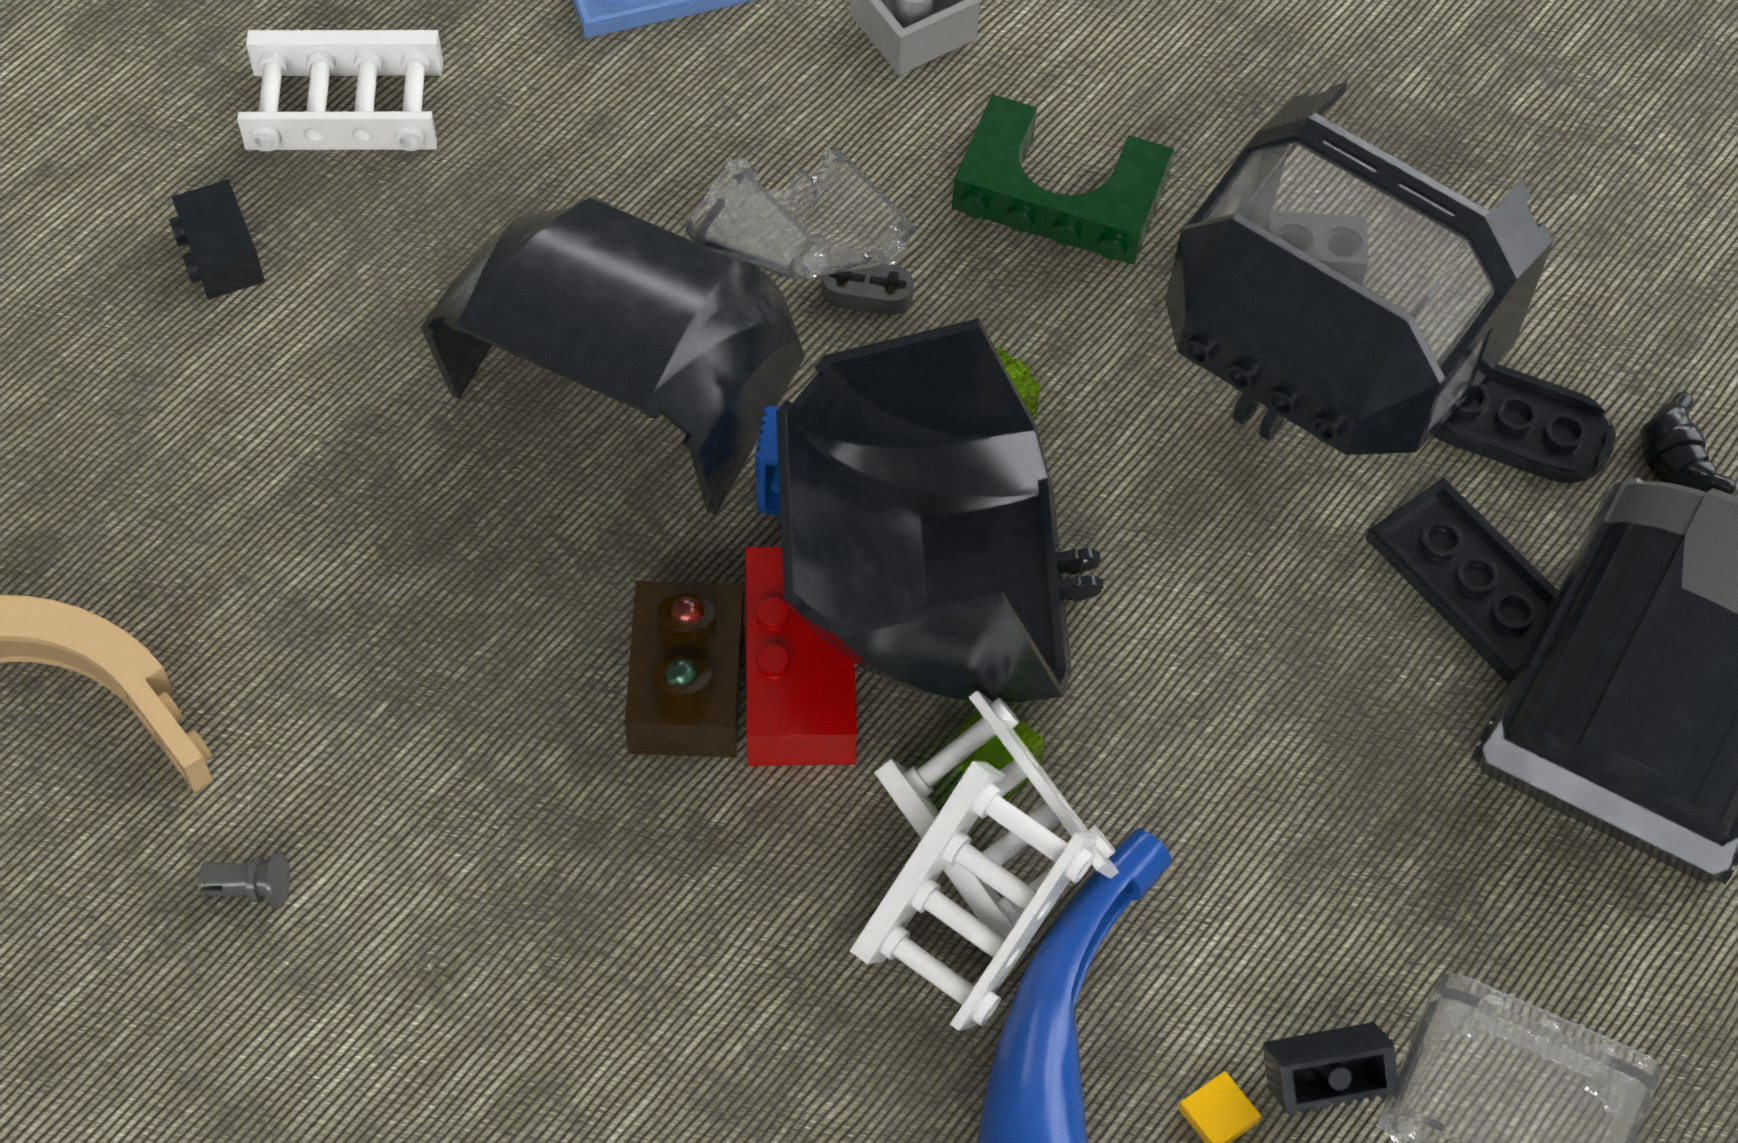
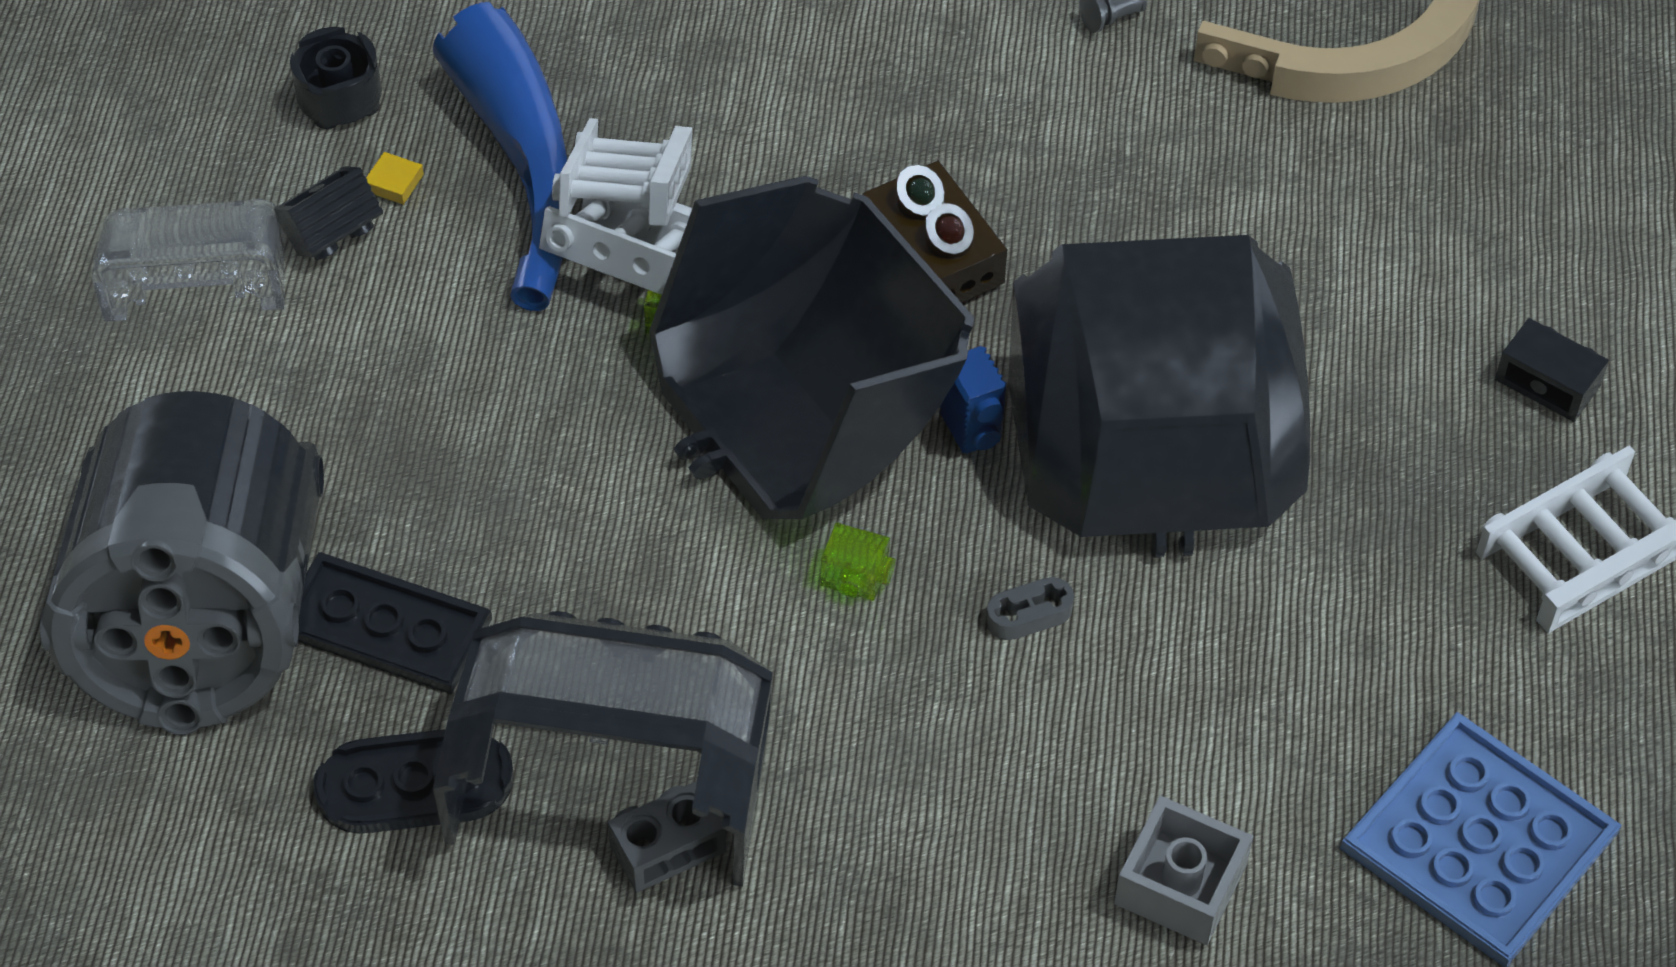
camera: 150 degrees right, 5 degrees down
(804, 231) = (1096, 551): clear windscreen -> none
(1103, 221) = (984, 743): dark green arch -> none
(1678, 450) = (258, 820): black piece -> none

